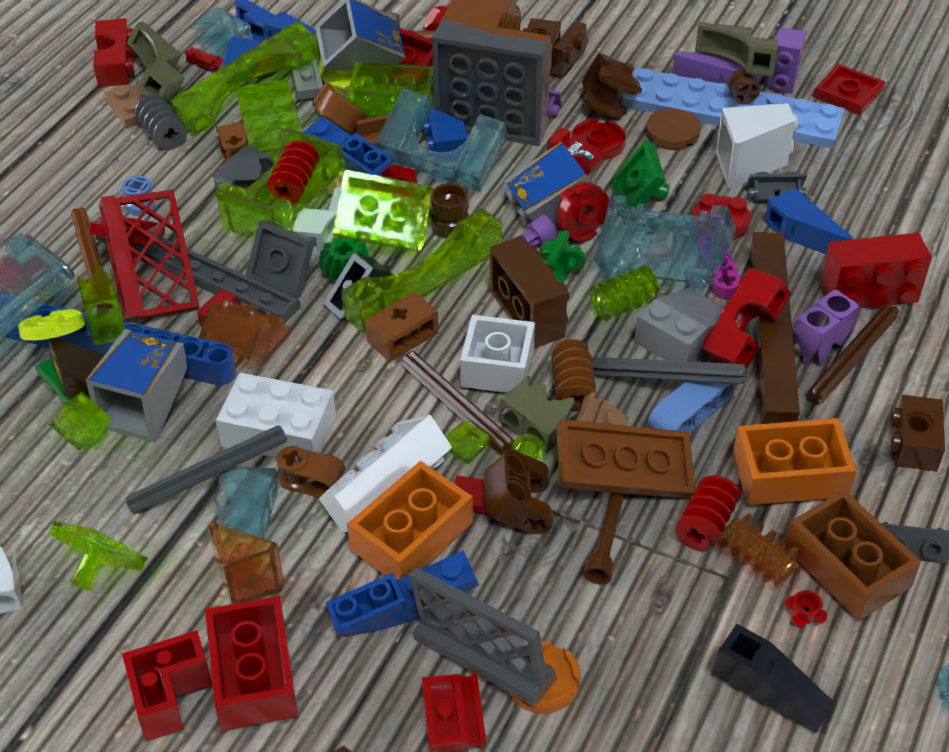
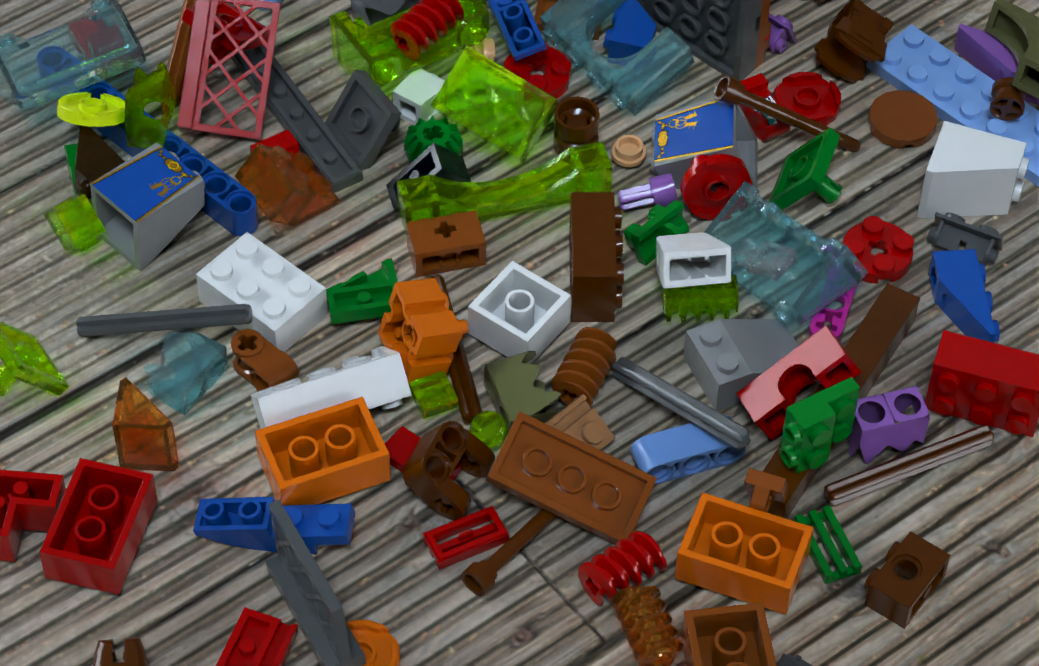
camera: 25 degrees right, 5 degrees up
(363, 388) = (362, 295): none -> green wing
(431, 389) = (421, 328): none -> orange brick
(499, 211) = (628, 151): none -> light nougat plate
(562, 137) = (731, 91): none -> reddish brown piece
(575, 548) = (468, 542): none -> red tile
(598, 264) = (685, 260): none -> white torso
(783, 403) = (765, 489): none -> dark orange tile
(794, 342) = (816, 423): none -> green plate
(853, 432) = (841, 540): none -> green tile

